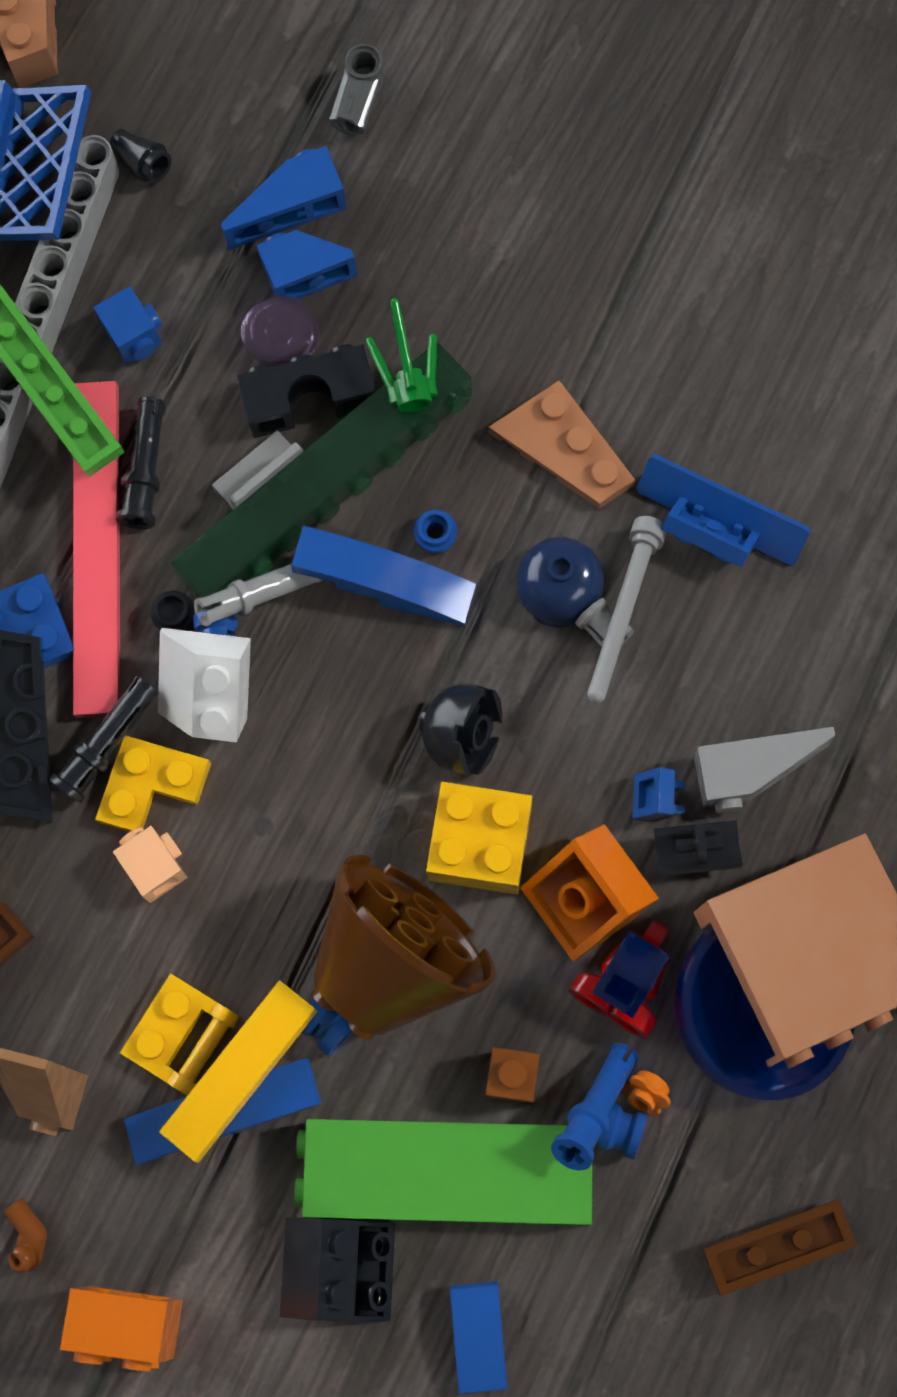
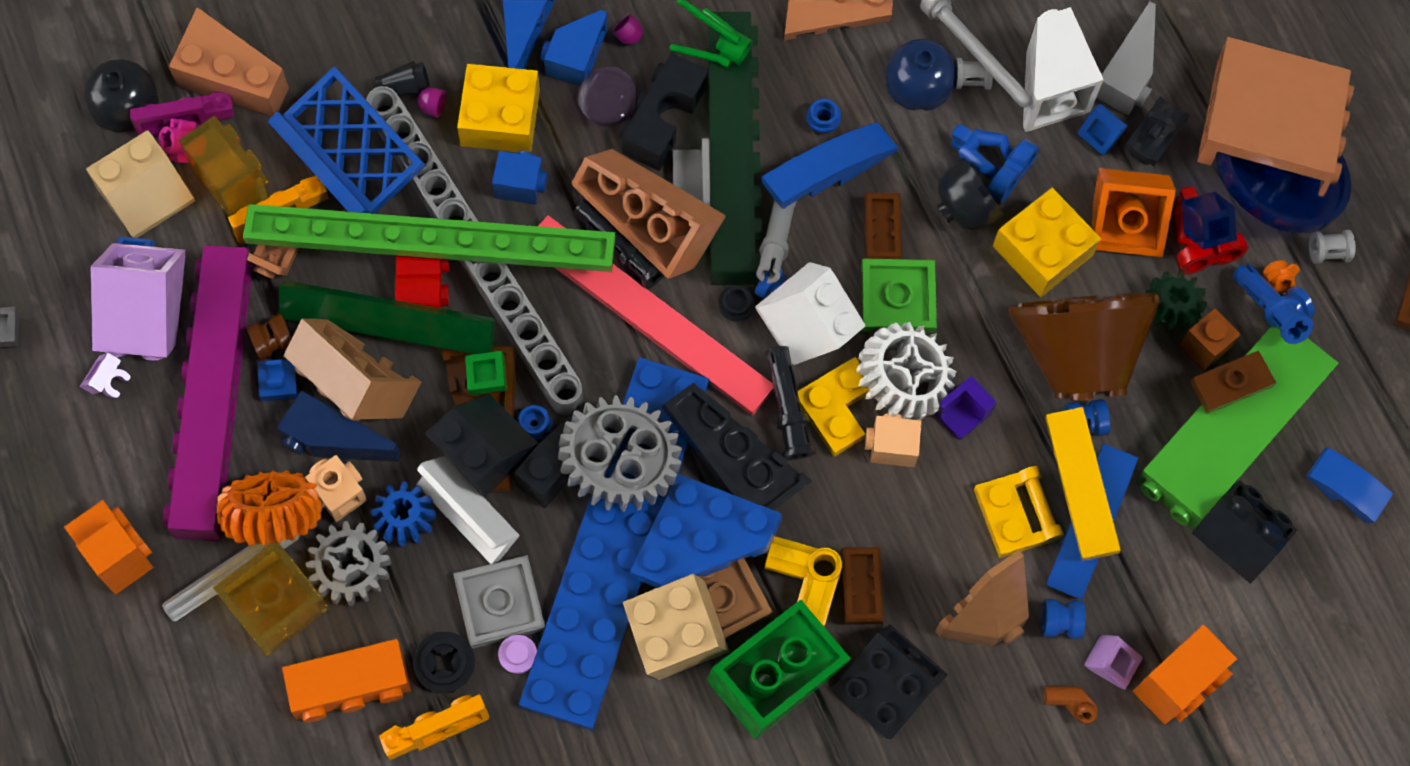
camera: 60 degrees left, 5 degrees down
(98, 1162) = (1058, 618): none -> blue wheel
(102, 1244) = (1113, 660): none -> lavender slope
(142, 195) = (432, 101): none -> magenta hinge
(180, 252) = (498, 108): none -> yellow brick
(181, 457) = (649, 211): none -> nougat wedge
(241, 901) = (965, 408): none -> dark purple panel
(249, 846) = (896, 381): none -> white gear
(305, 748) = (898, 293): none -> bright green plate
(364, 293) = (628, 30): none -> magenta hinge
(364, 677) = (882, 226): none -> reddish brown plate
(472, 1134) = (1233, 382): none -> reddish brown plate
(522, 748) = (1016, 161): none -> blue piece
(541, 1001) = (1189, 302): none -> clear green gear
(666, 699) = (1059, 71): none -> white slope
(730, 1120) = (1332, 246): none -> light grey bush

